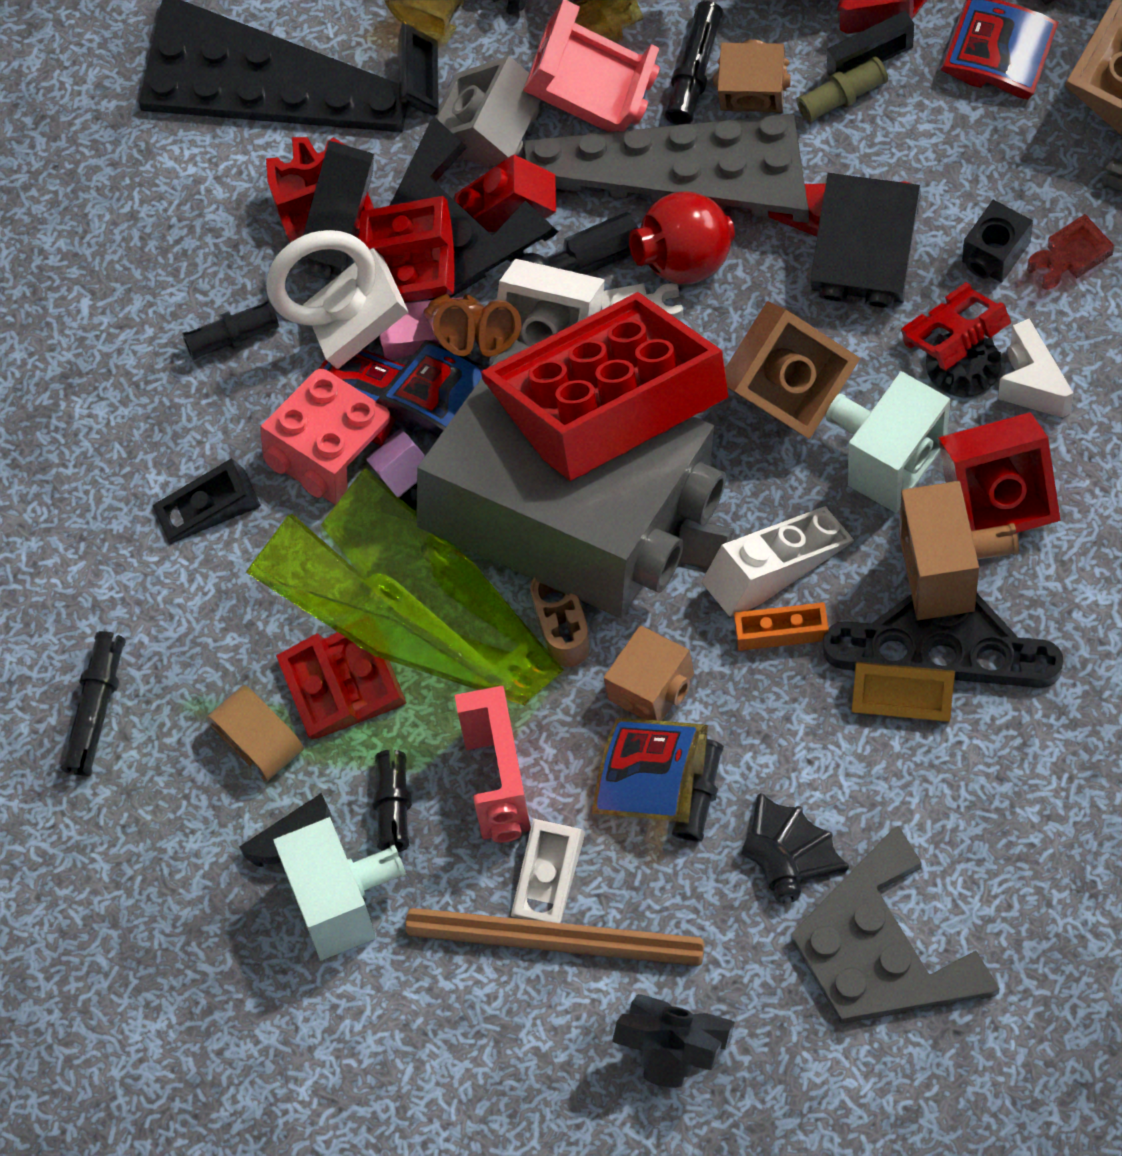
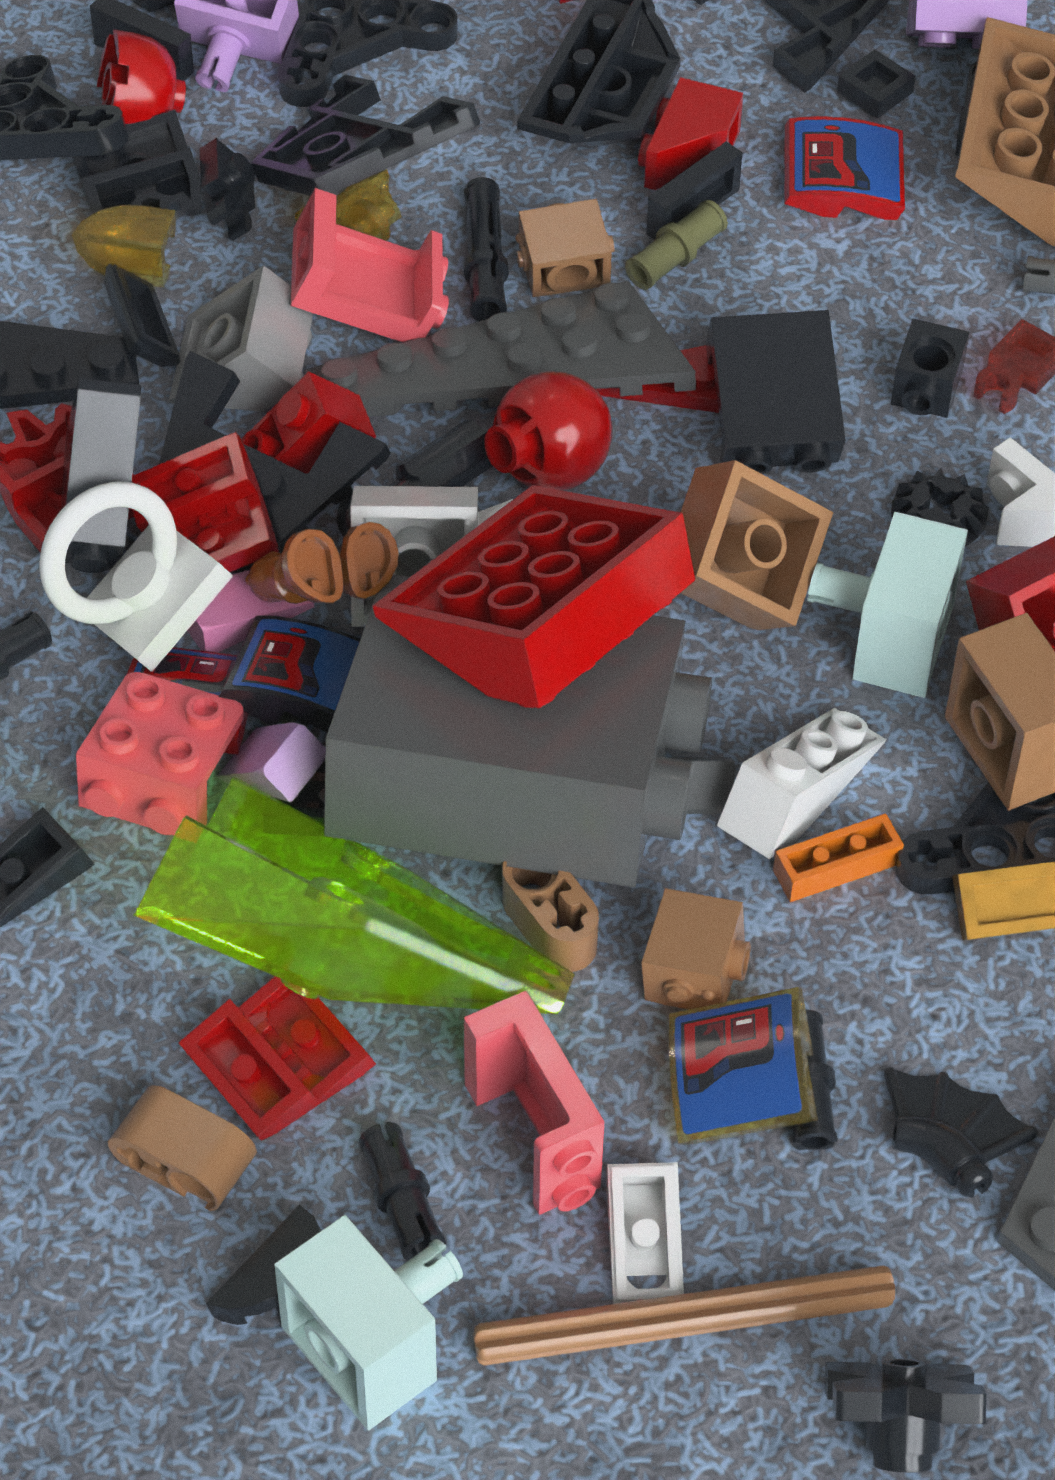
camera: 25 degrees left, 10 degrees down
(963, 330) = (933, 471): red piece -> none

